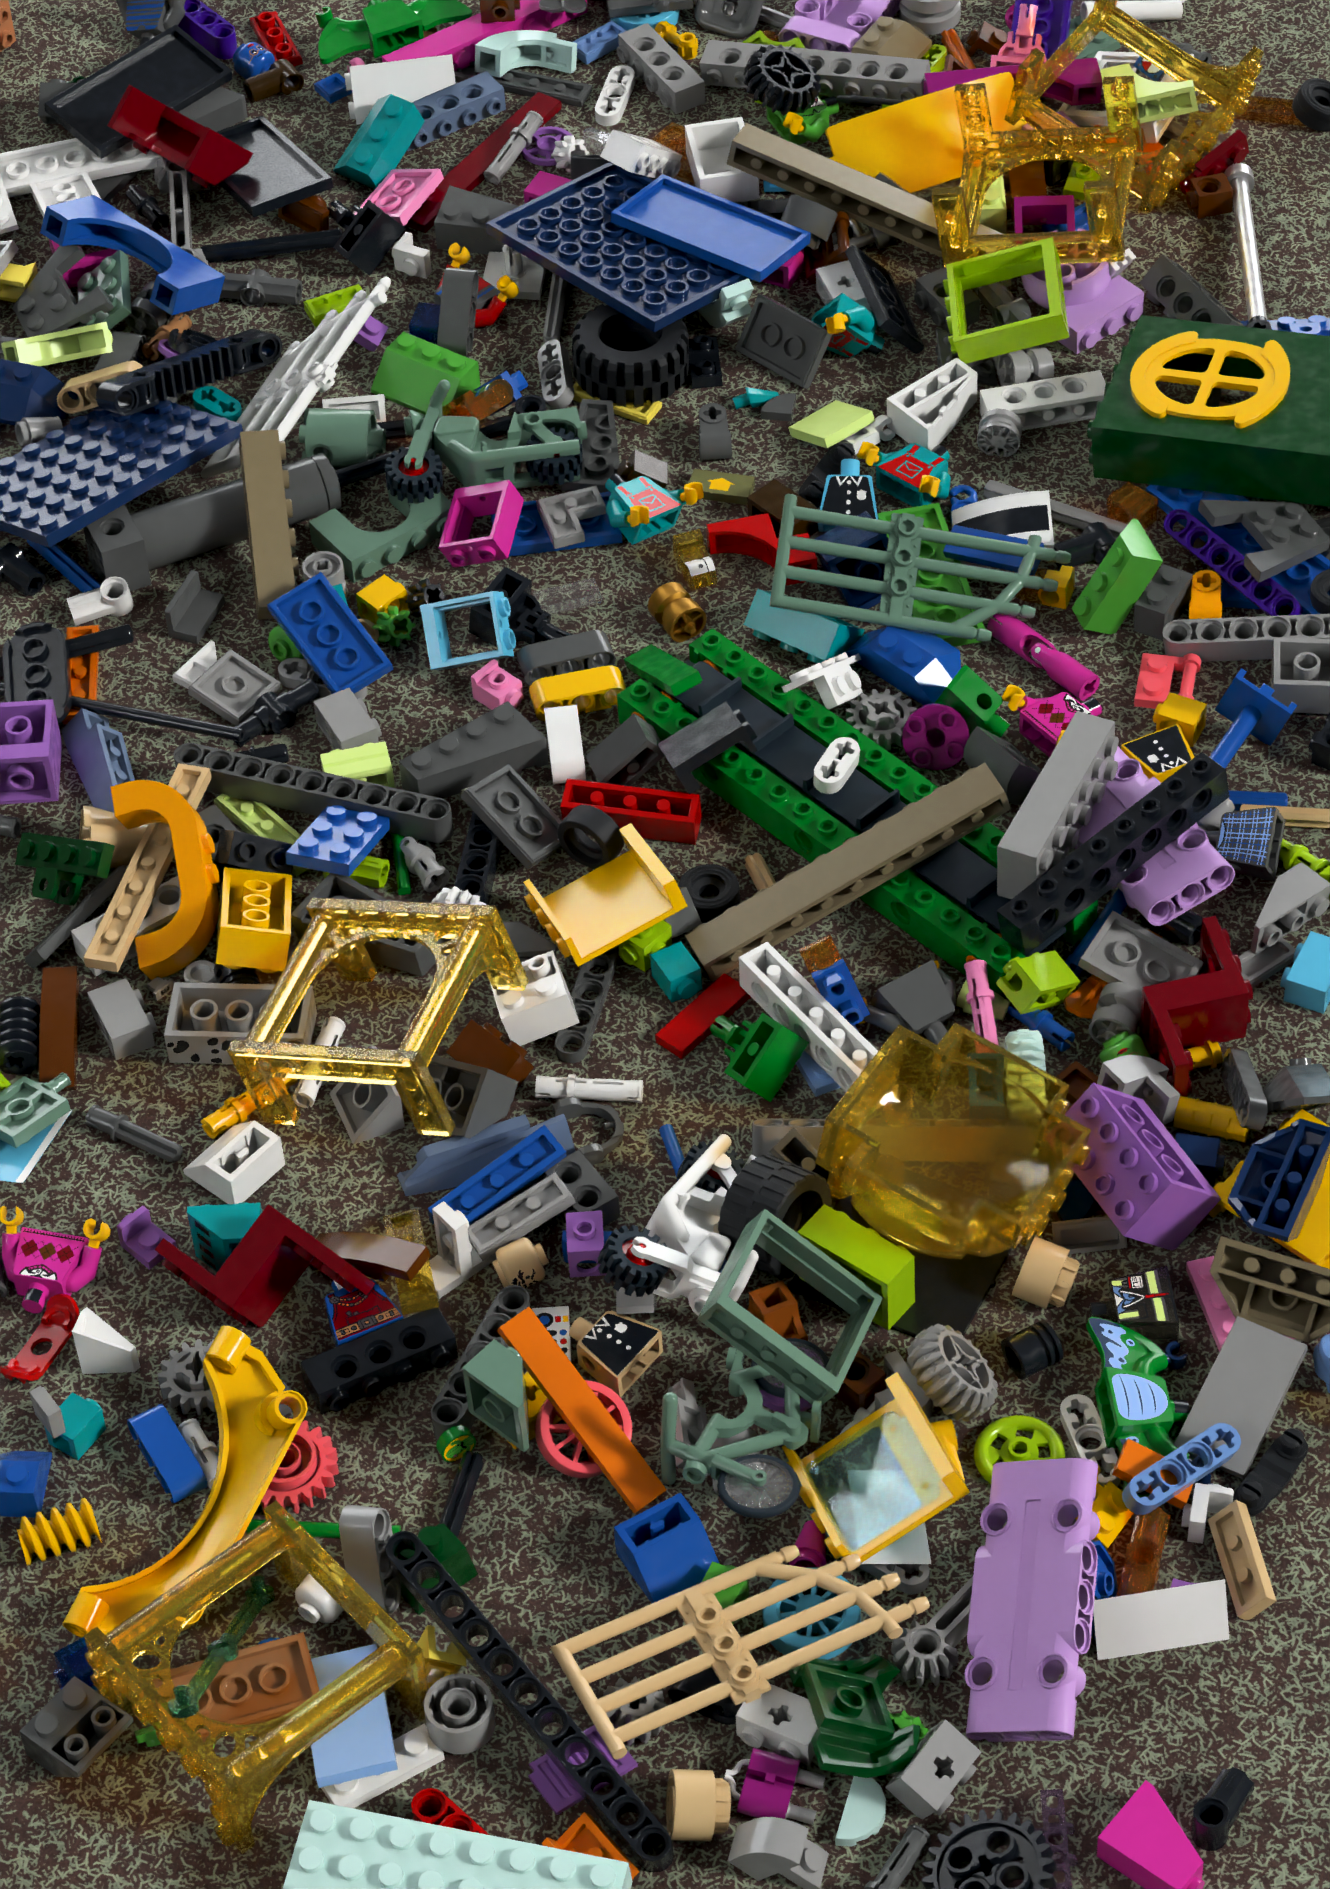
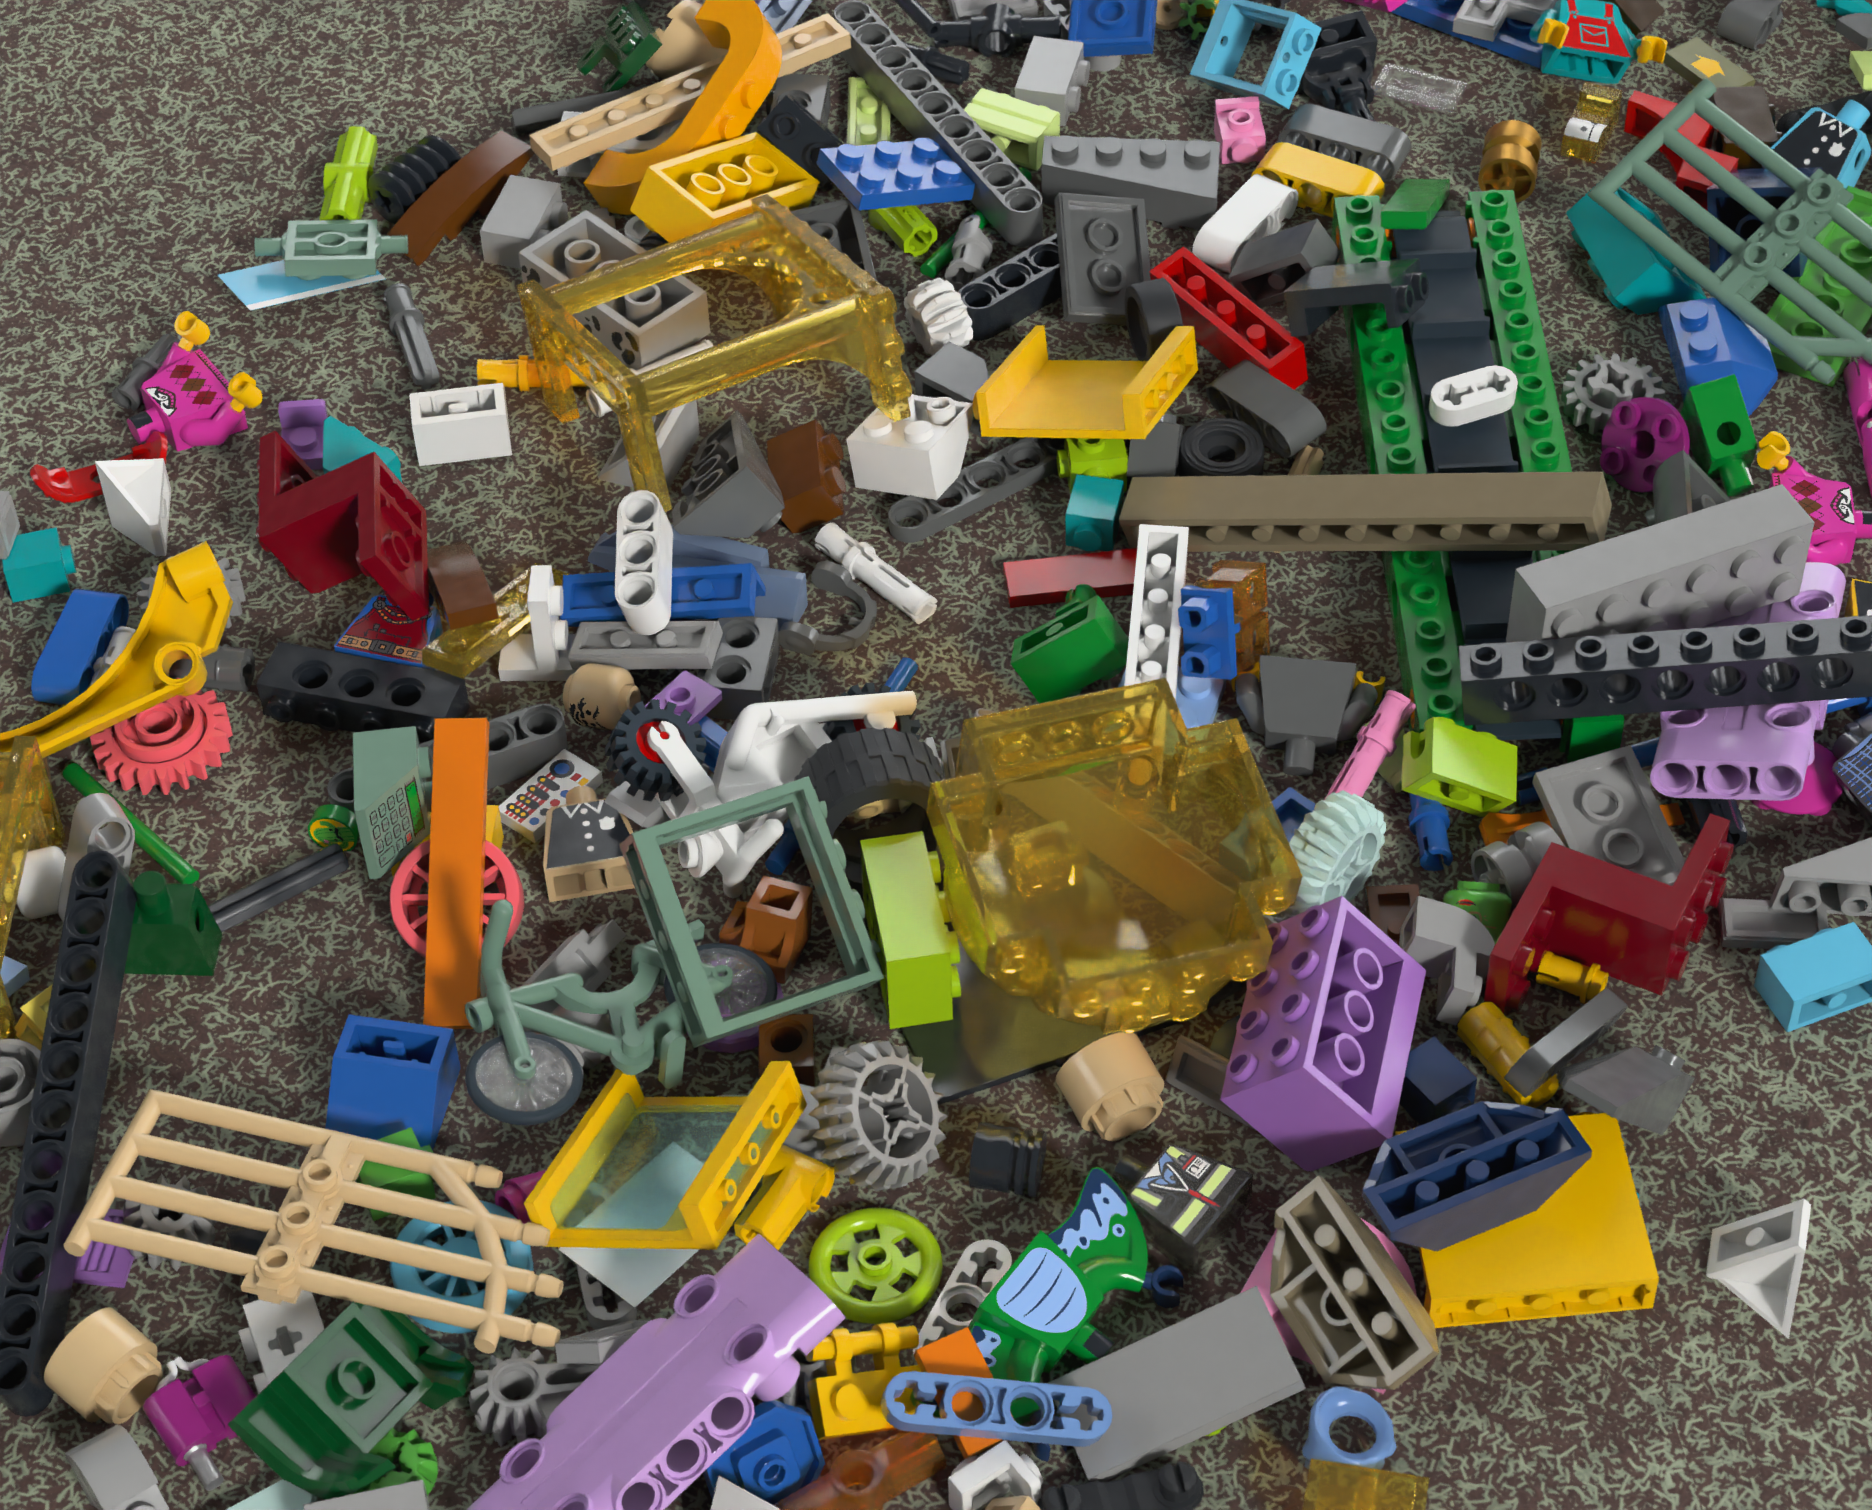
camera: 40 degrees right, 0 degrees up
(480, 1150) = (643, 562): none -> white beam
(698, 845) = (1269, 406): none -> dark grey beam
(832, 678) = (1583, 320): white bracket -> none
(950, 1584) = (596, 1345): none -> light grey tile

